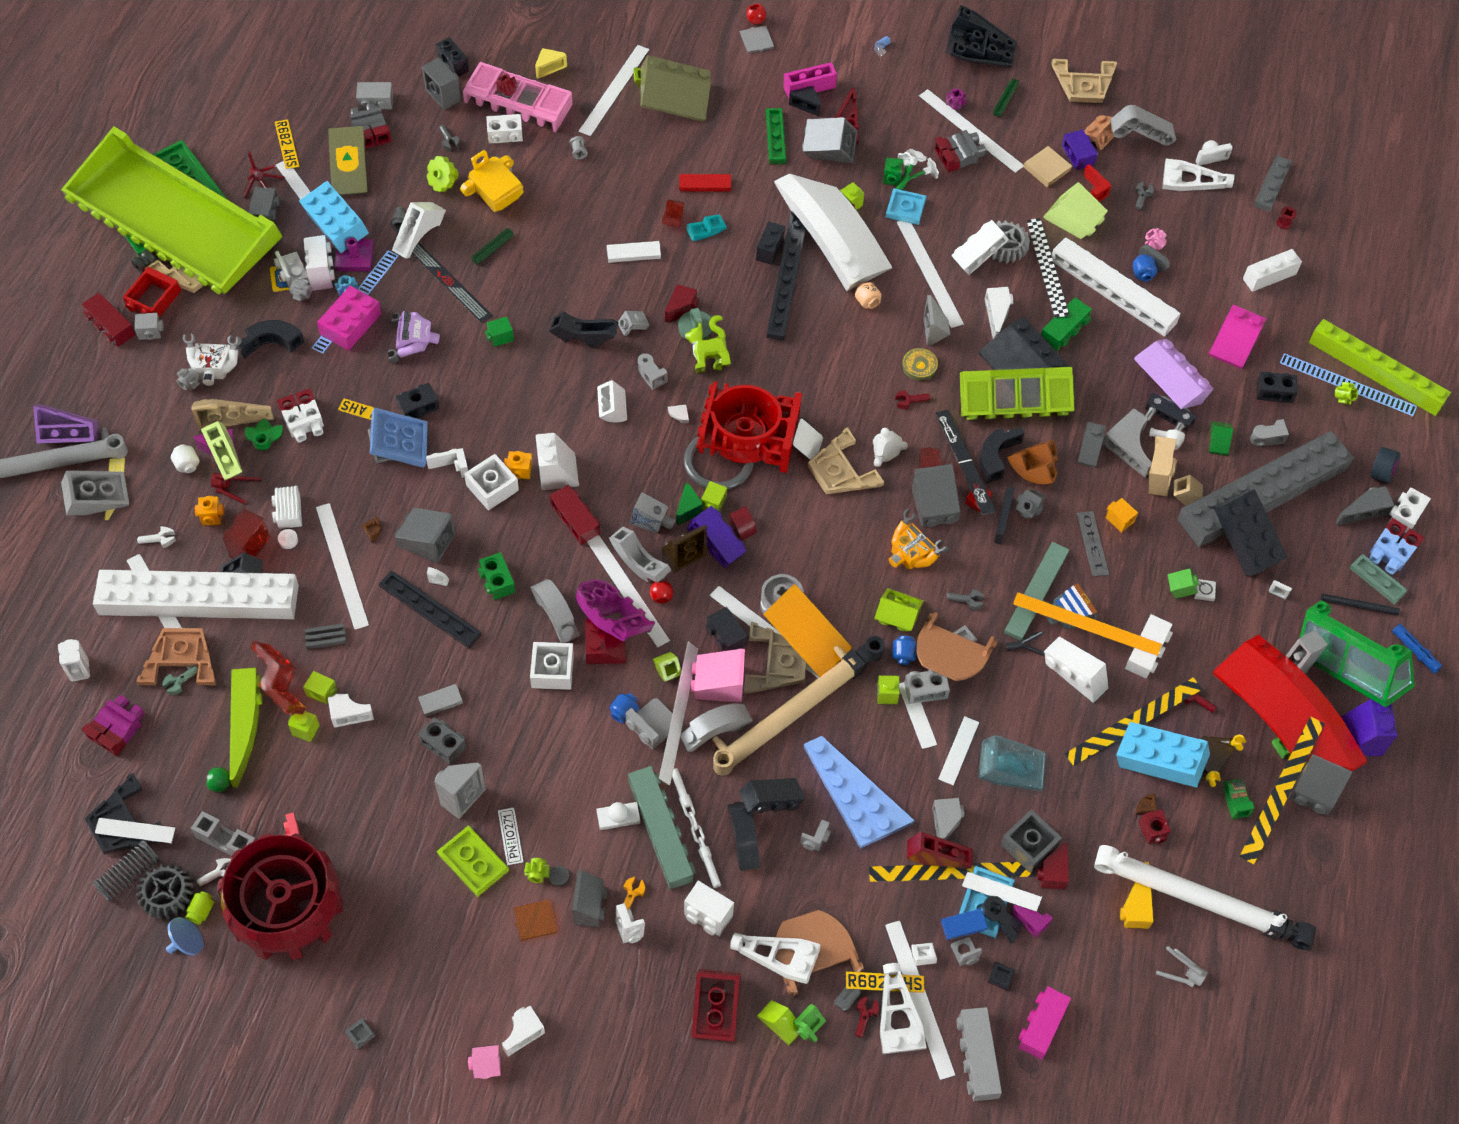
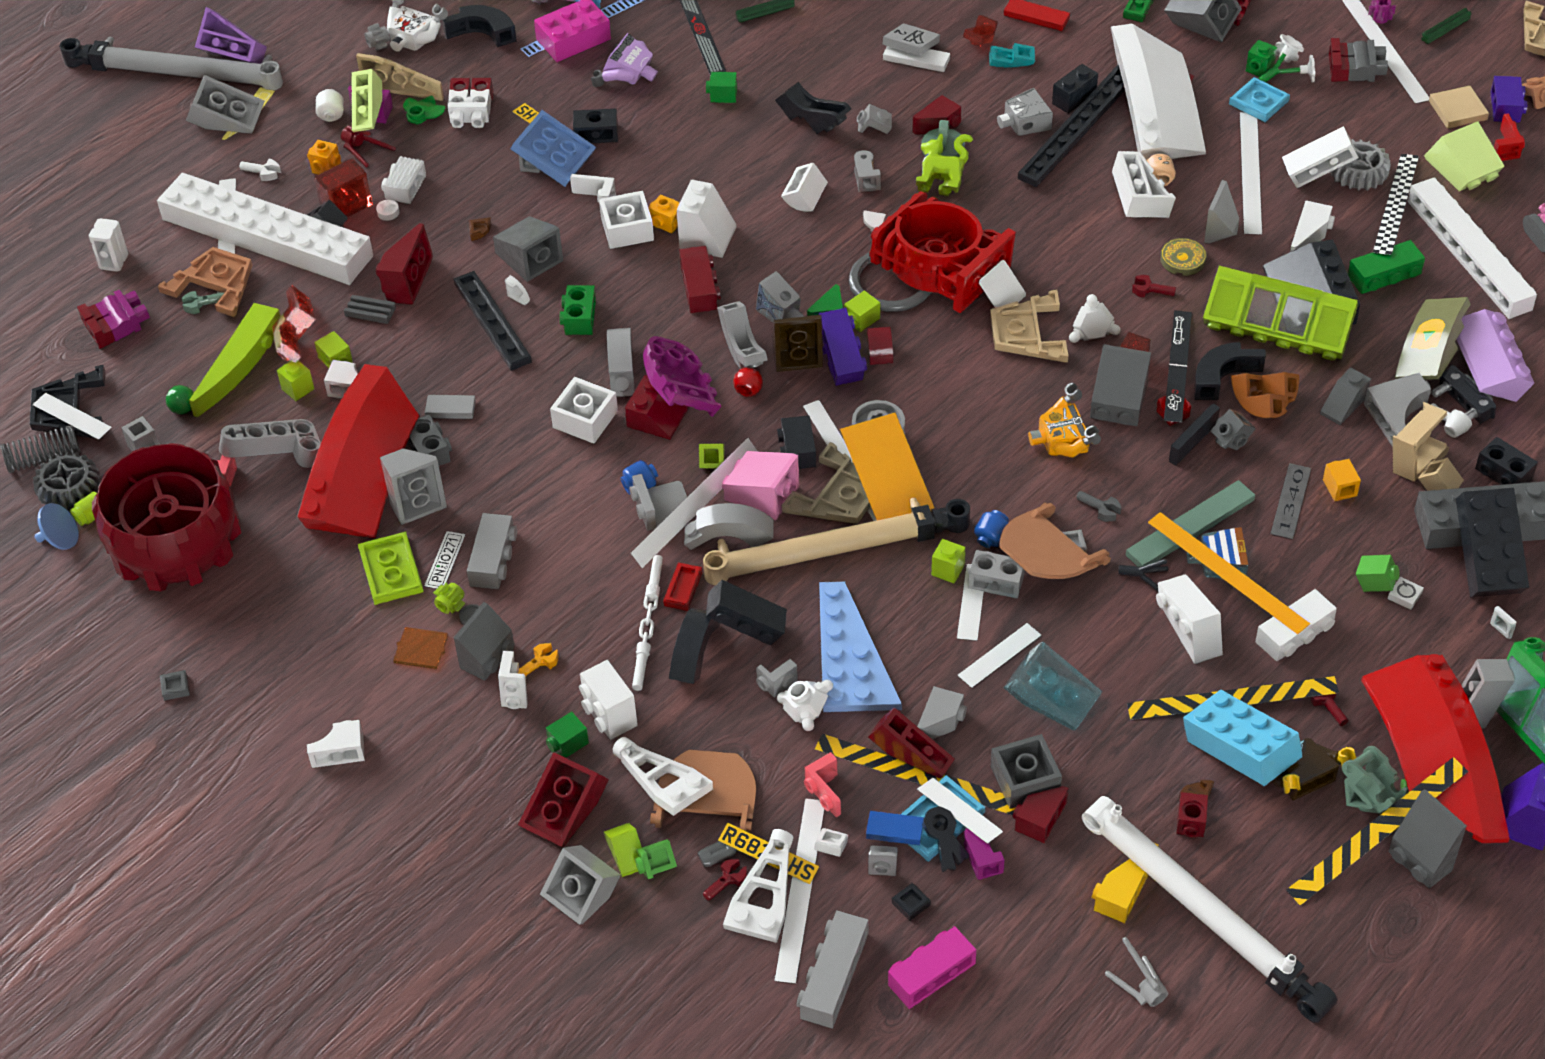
camera: 30 degrees right, 10 degrees down
(333, 777) = (272, 438): none -> light grey beam
(338, 591) = (405, 266): none -> dark red slope
(342, 566) = (433, 230): white sticker -> none
(400, 774) = (347, 477): none -> red slope
(485, 1062) = (281, 758): bright pink brick -> none
(546, 816) = (491, 551): none -> light grey brick
(618, 815) = (570, 579): white tile -> none
(623, 238) = (911, 39): none -> light grey tile
(625, 586) = (714, 367): white sticker -> none
(660, 827) = (608, 603): sand green brick -> none
(689, 949) = (566, 735): none -> green brick
(704, 786) = (682, 586): none -> red tile
(745, 277) = (1026, 114): none -> light grey torso
(766, 1067) = (579, 883): none -> light grey slope
(848, 848) = (805, 701): none -> white rock
(853, 195) = (1201, 69): lime brick -> none
(861, 316) = (1139, 188): none -> white wedge
(889, 912) = (815, 781): none -> coral bracket
(898, 610) = (1009, 487): lime slope -> none
(1129, 376) = (1432, 338): none -> slope
(1144, 267) = (1520, 238): blue head -> none
(1220, 438) = (1521, 436): green slope -> none
(1224, 458) = (1505, 463): none -> black brick
(1237, 799) = (1317, 825): green leg -> none
(1262, 754) = (1373, 788): none -> sand green piece

